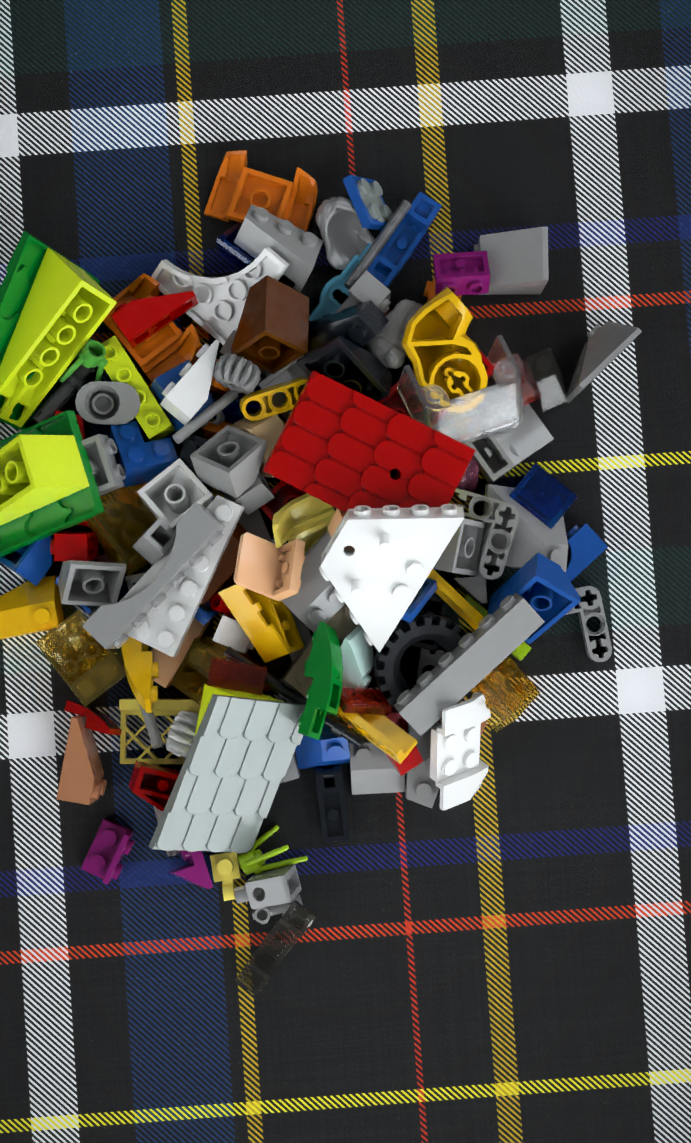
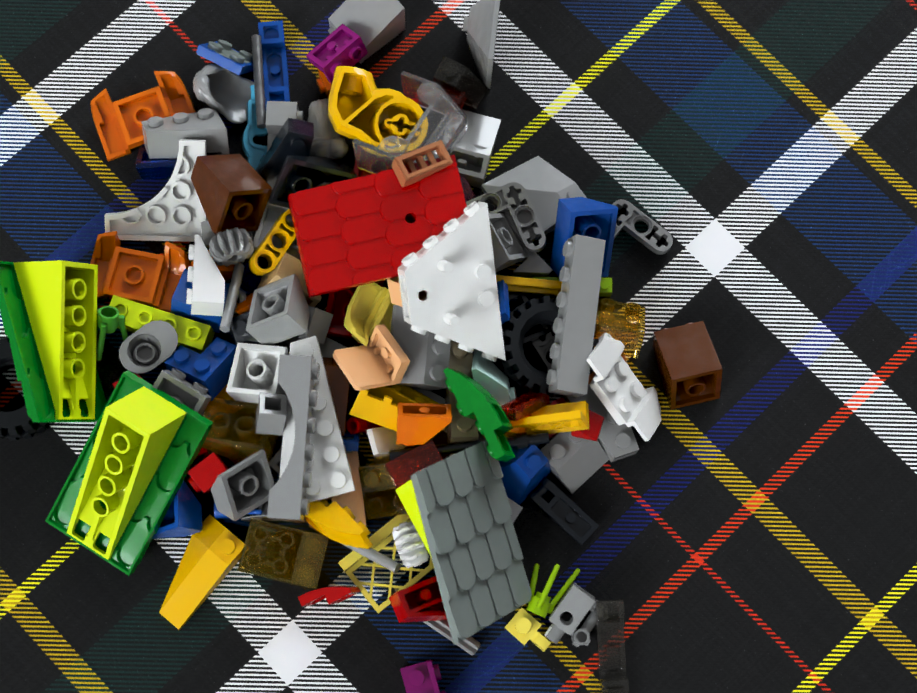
camera: 45 degrees left, 10 degrees down
(64, 393) = (107, 368): dark grey pin -> none
(81, 769) = (354, 641): nougat slope -> none
(149, 315) = (127, 260): red slope -> none
(195, 871) = (504, 645): magenta slope -> none
(269, 648) = (421, 422): none -> orange slope
(415, 436) = (415, 175): none -> nougat slope
(533, 769) = (688, 364): none -> reddish brown slope
(543, 495) = (528, 161): clear blue slope -> none
(583, 549) = (588, 176): blue arch -> none

